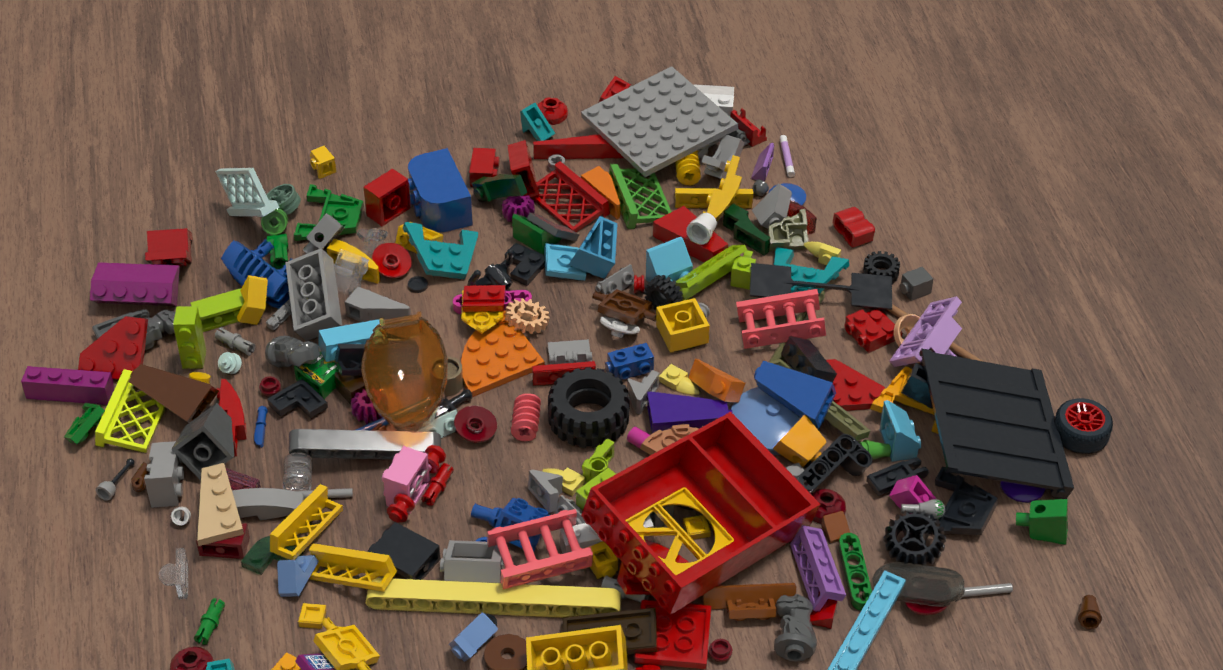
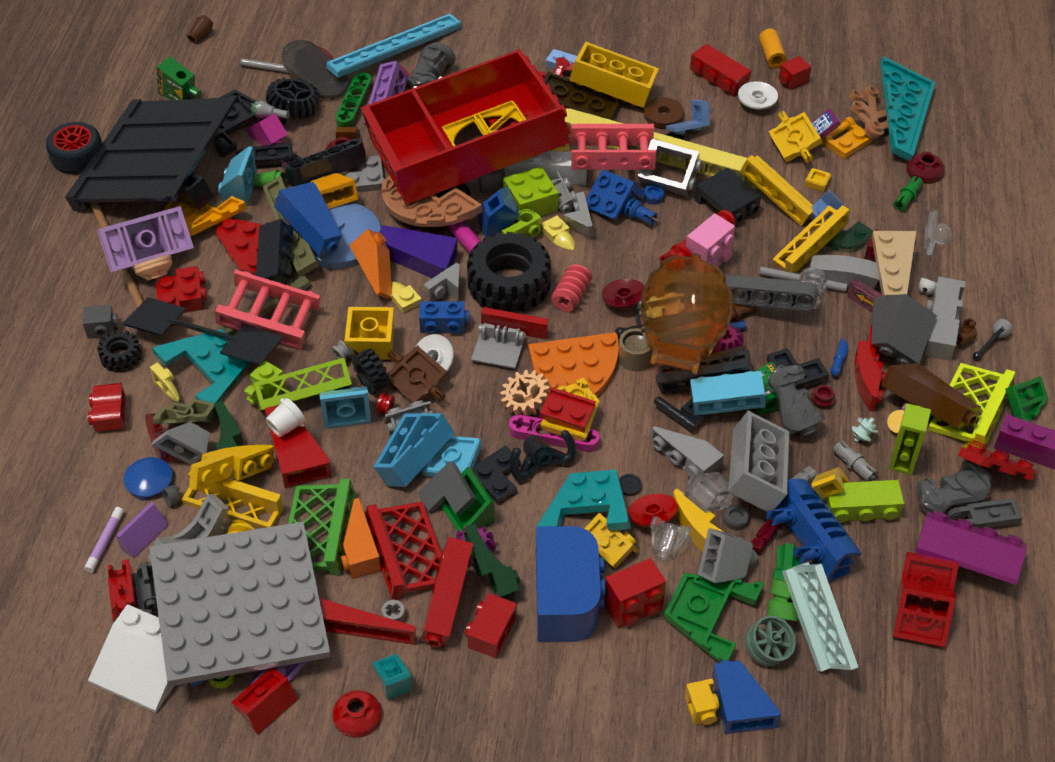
camera: 160 degrees left, 5 degrees up
(294, 168) = (742, 700): none -> blue slope
(623, 451) = (498, 212): none -> blue slope

